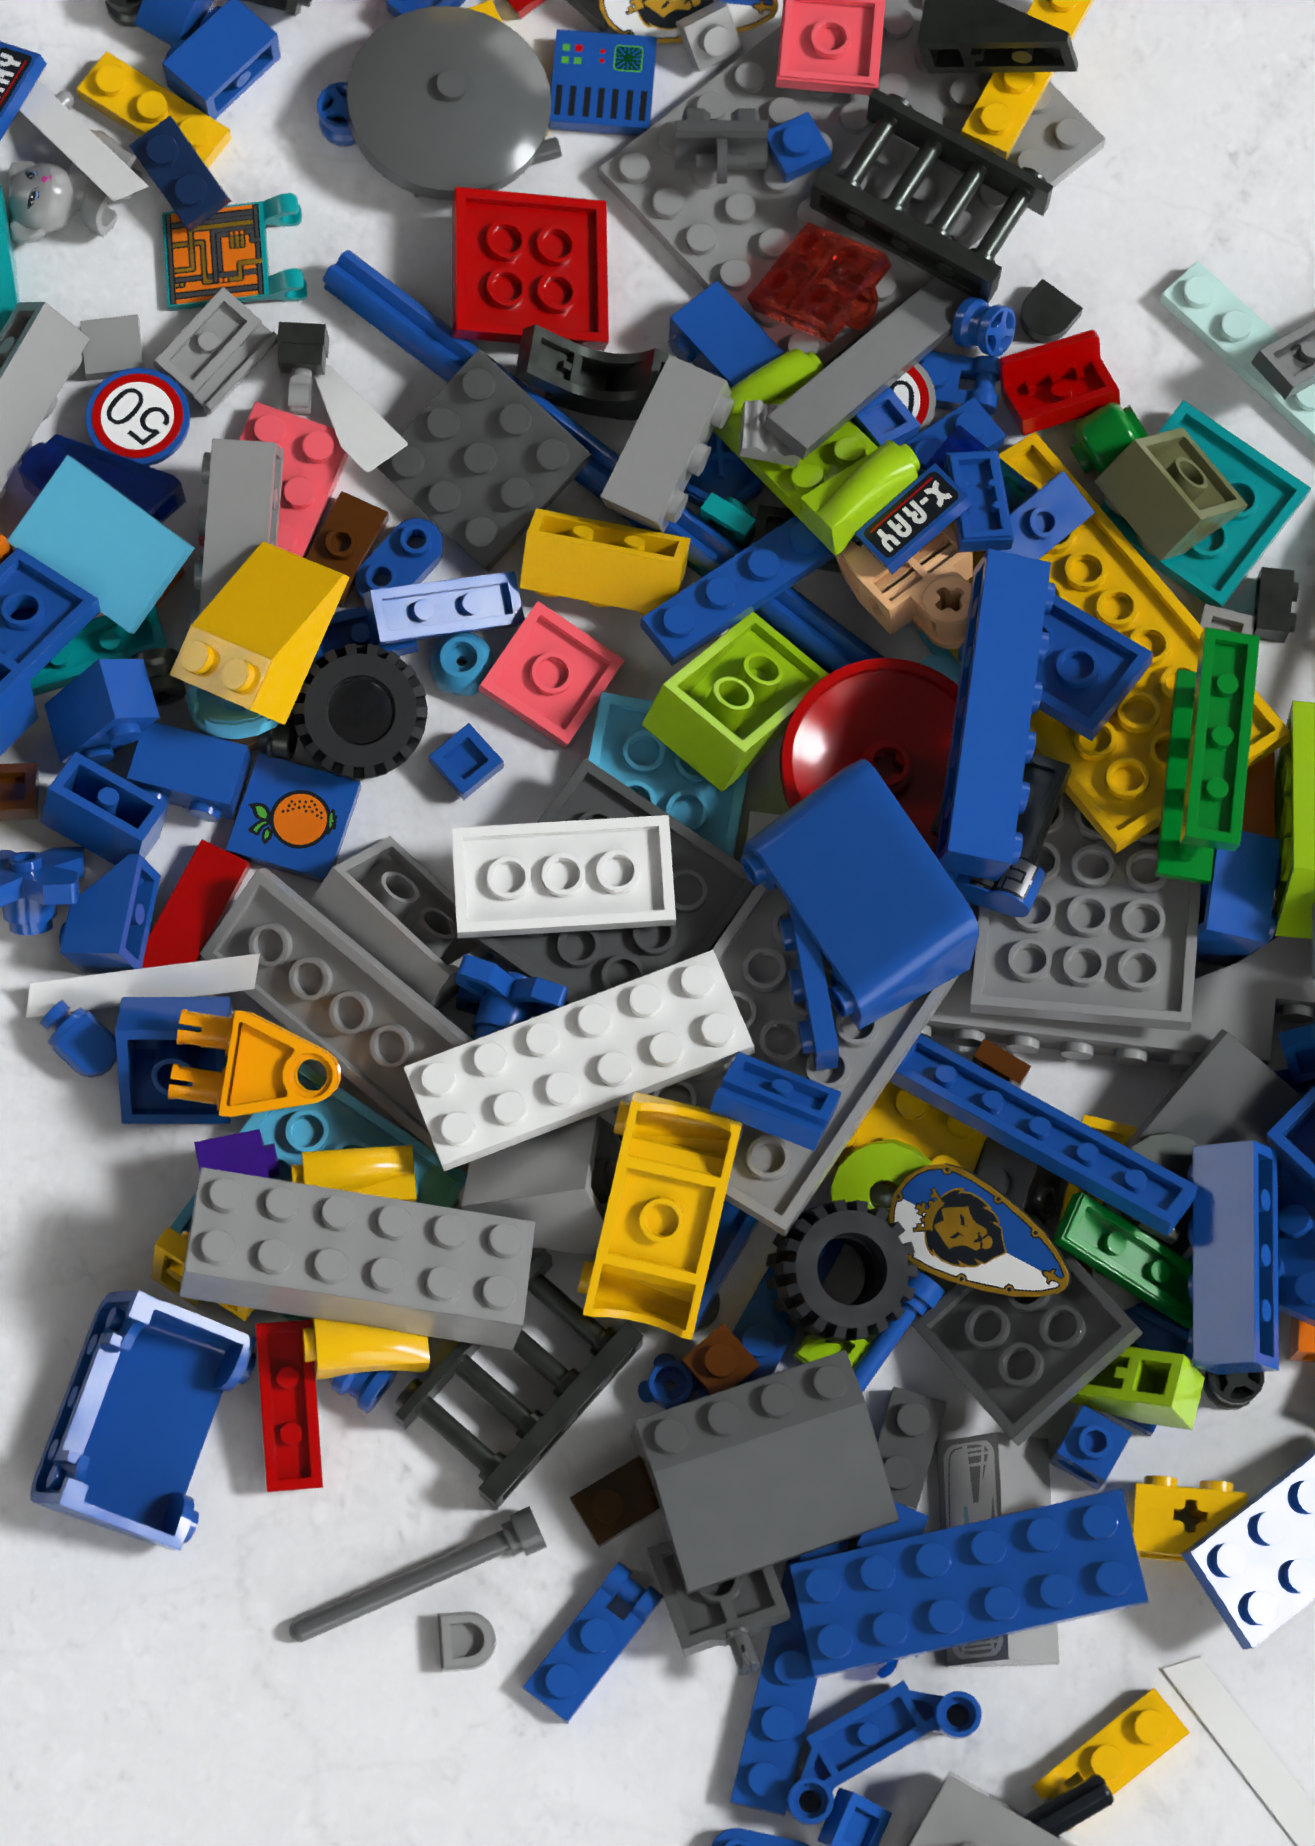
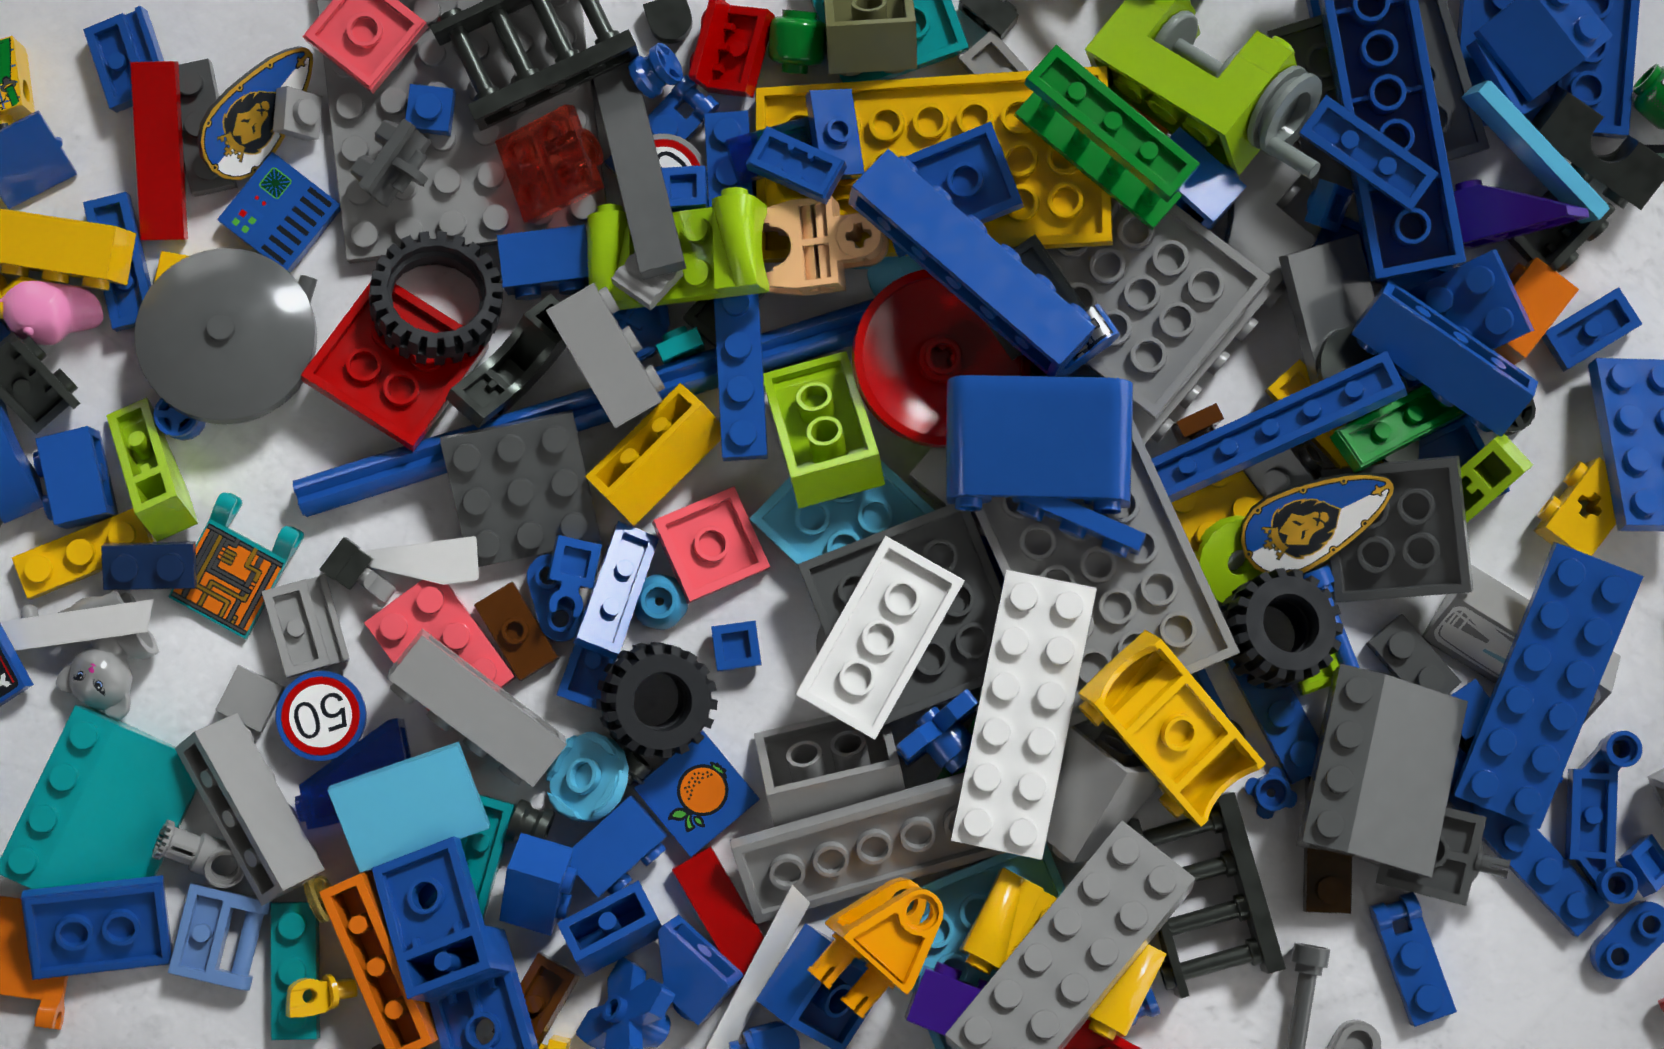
camera: 55 degrees left, 10 degrees up
(262, 632) = (561, 736): yellow slope -> none
(269, 122) = (151, 471): none -> lime slope
(438, 553) = (573, 566): none -> blue plate
(654, 230) = (445, 253): none -> black tyre
(720, 1361) = (1285, 751): reddish brown plate -> none
(776, 1101) = (1151, 600): blue plate -> none
(913, 518) = (783, 220): tile -> none
(1090, 1447) = (1498, 539): blue brick -> none

